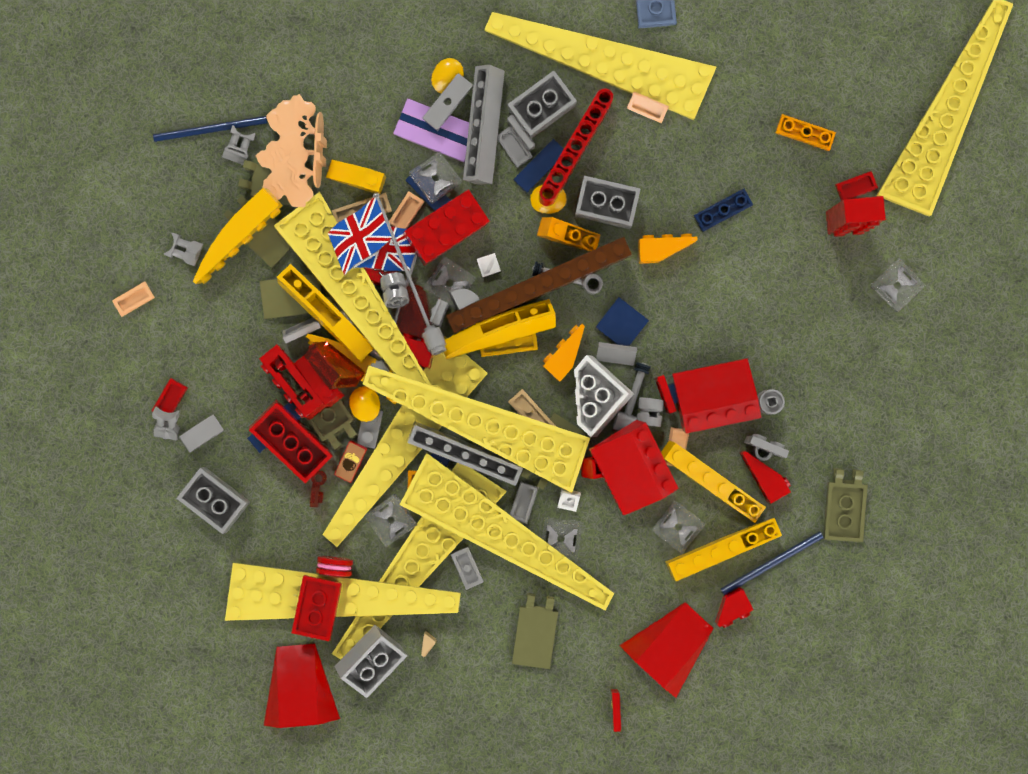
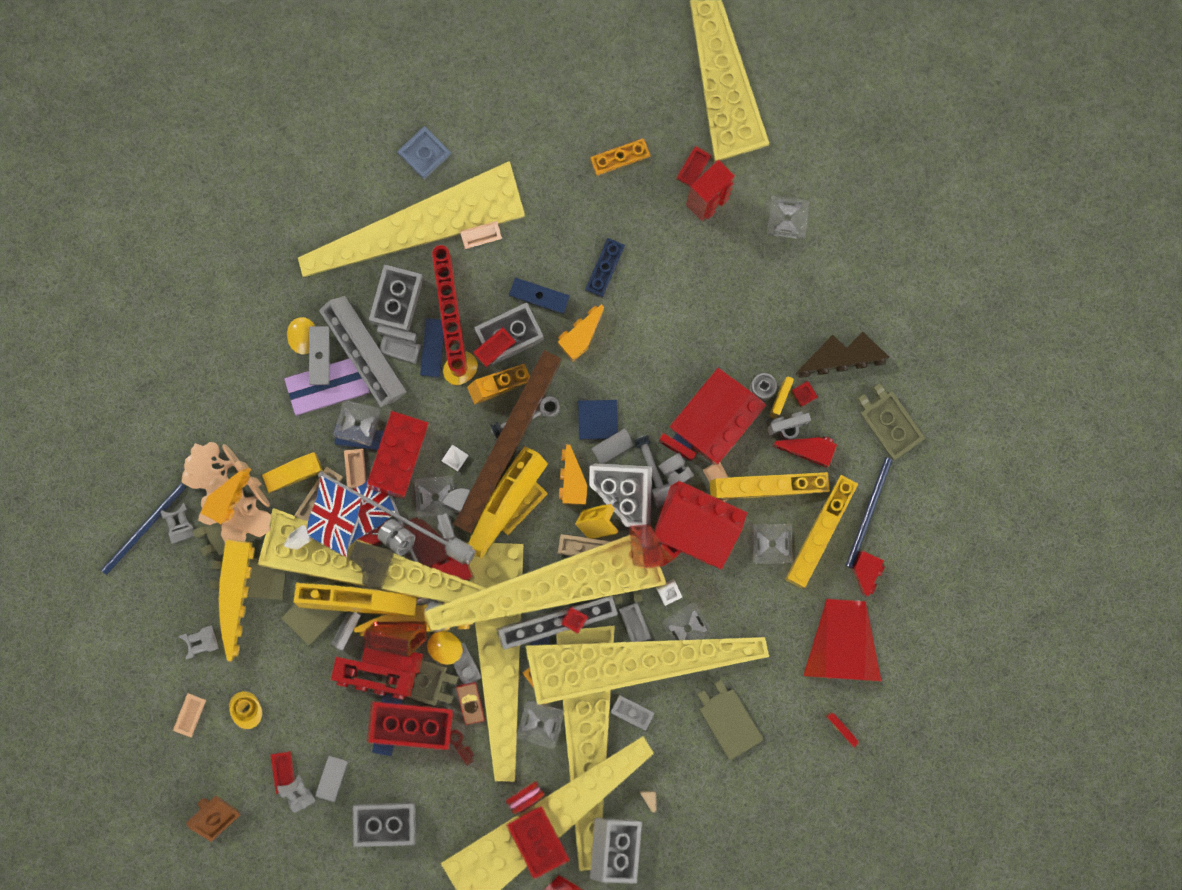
camera: 40 degrees left, 5 degrees down
(89, 390) = (212, 817): none -> dark orange tile
(173, 336) = (249, 718): none -> yellow hat
(284, 155) = (221, 502): none -> light orange slope
(318, 230) = (297, 538): none -> white slope
(361, 295) = (373, 563): none -> clear smoke tile
(478, 463) = (574, 620): none -> red tile
(556, 401) = (595, 521): none -> yellow panel
(578, 452) = (645, 547): none -> clear red slope
(587, 203) = (494, 347): none -> red tile
(647, 181) = (527, 292): none -> dark blue tile
(777, 421) = (781, 397): none -> yellow tile
(797, 432) = (804, 394): none -> red tile
(847, 424) = (837, 356): none -> dark brown slope

